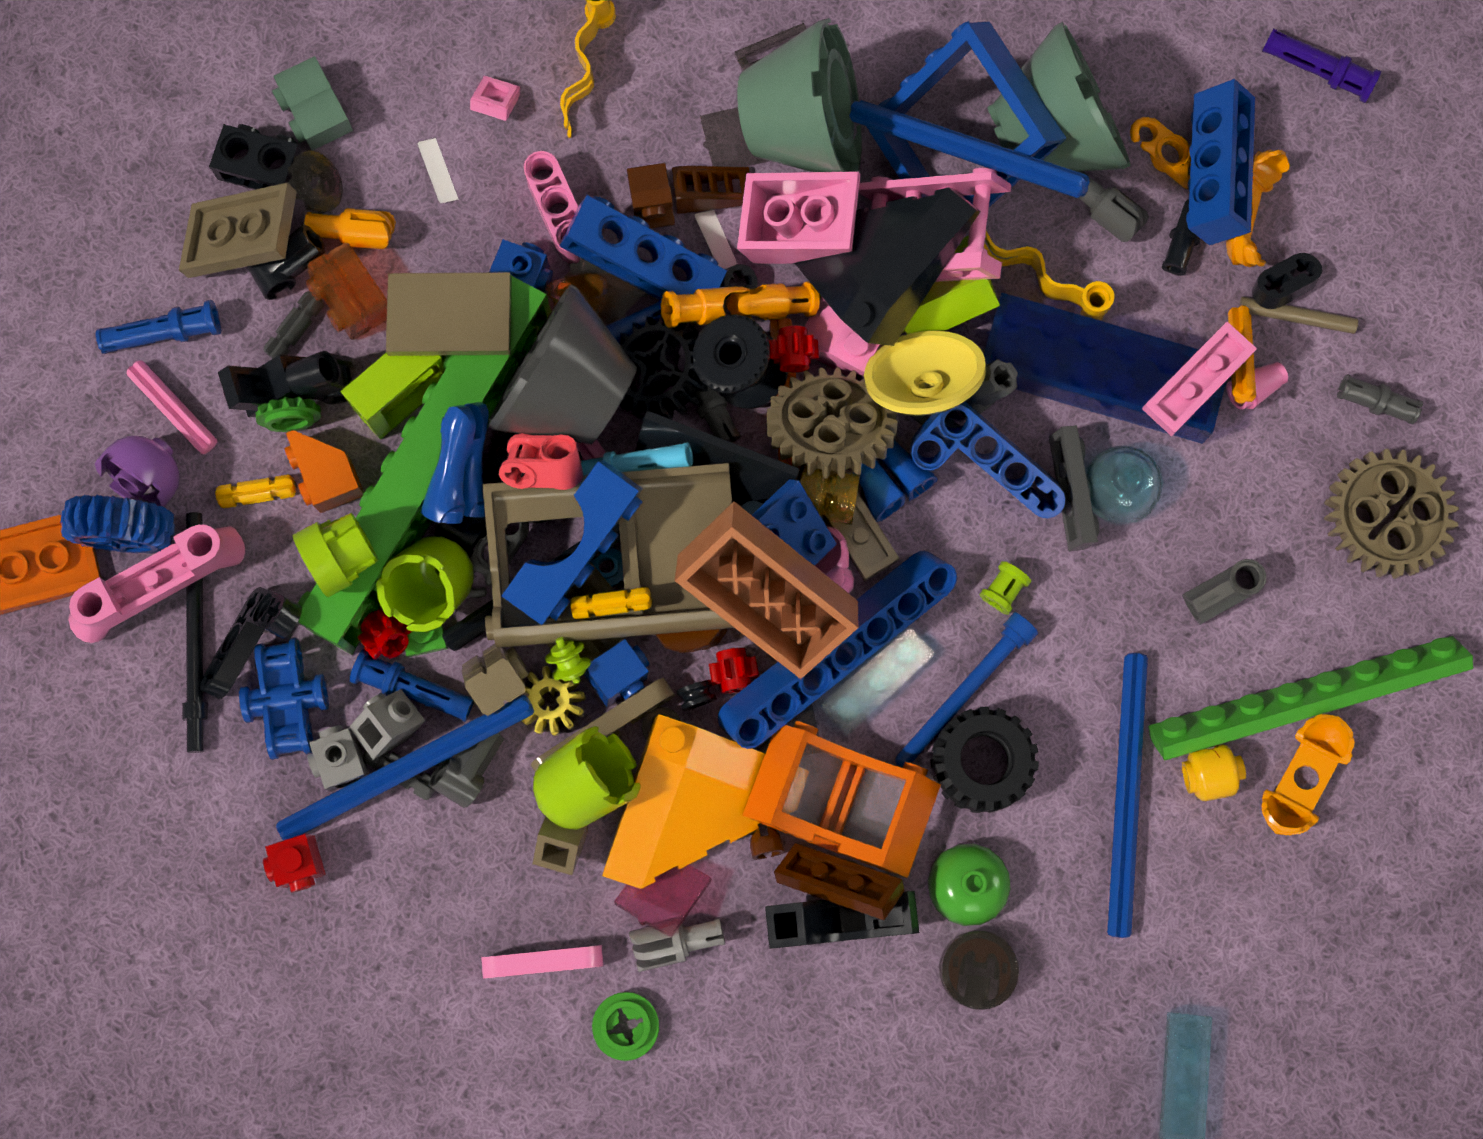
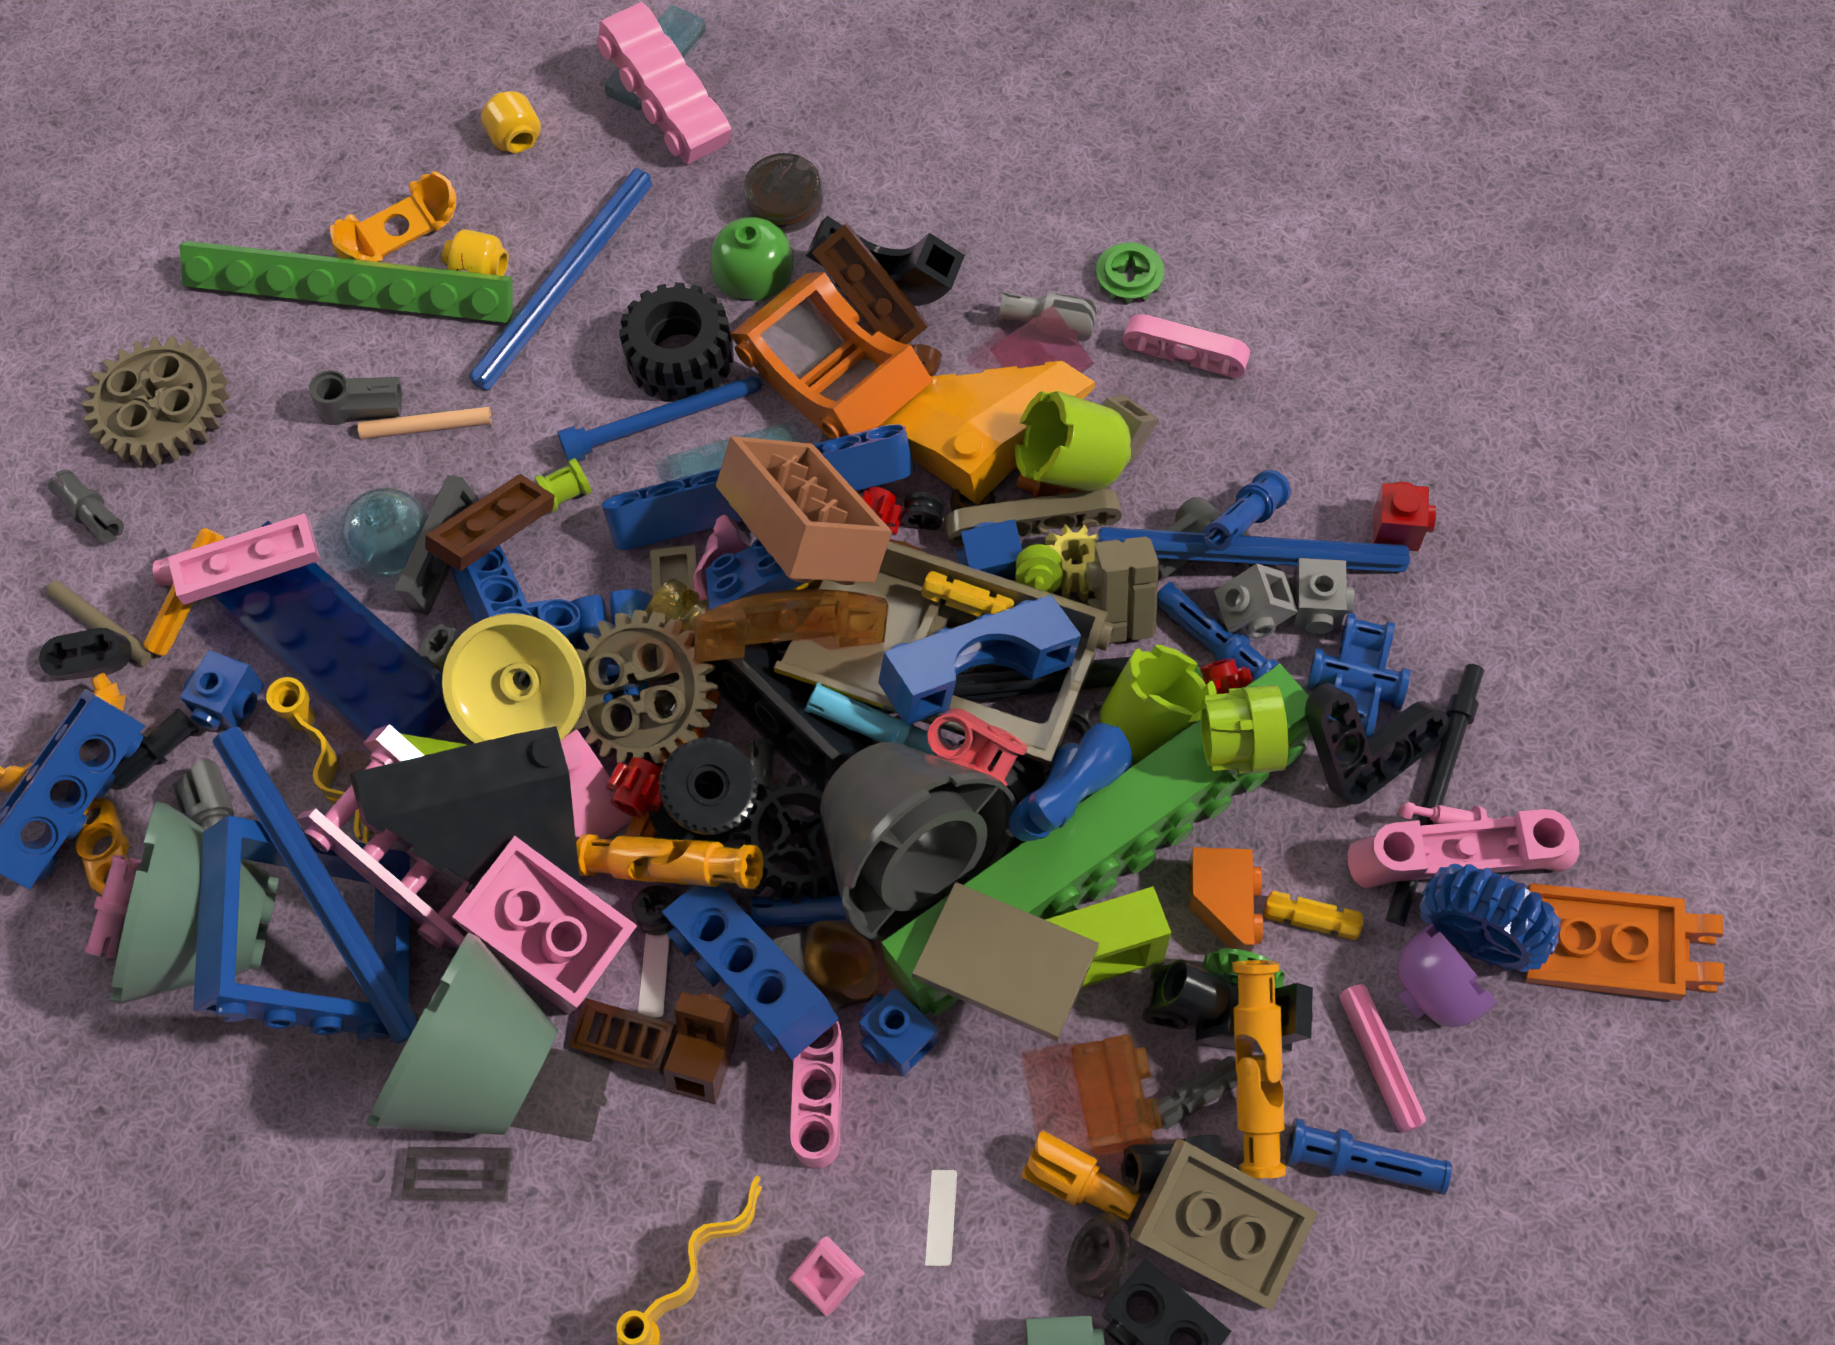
camera: 150 degrees left, 15 degrees down
(157, 615) = (1444, 814): none -> bright pink piece
(249, 342) = (1259, 1076): none -> light orange piece
(420, 812) = (1252, 505): none -> blue pin
(771, 463) = (787, 616): none -> clear orange slope
(1030, 505) = (489, 522): none -> reddish brown plate
(1125, 110) = (112, 907): none -> bright pink pin
(1152, 1034) = (665, 84): none -> bright pink brick
(1158, 292) = (221, 691): none -> blue brick
(1158, 599) = (424, 422): none -> light nougat piece
(1274, 937) = (511, 122): none -> yellow head

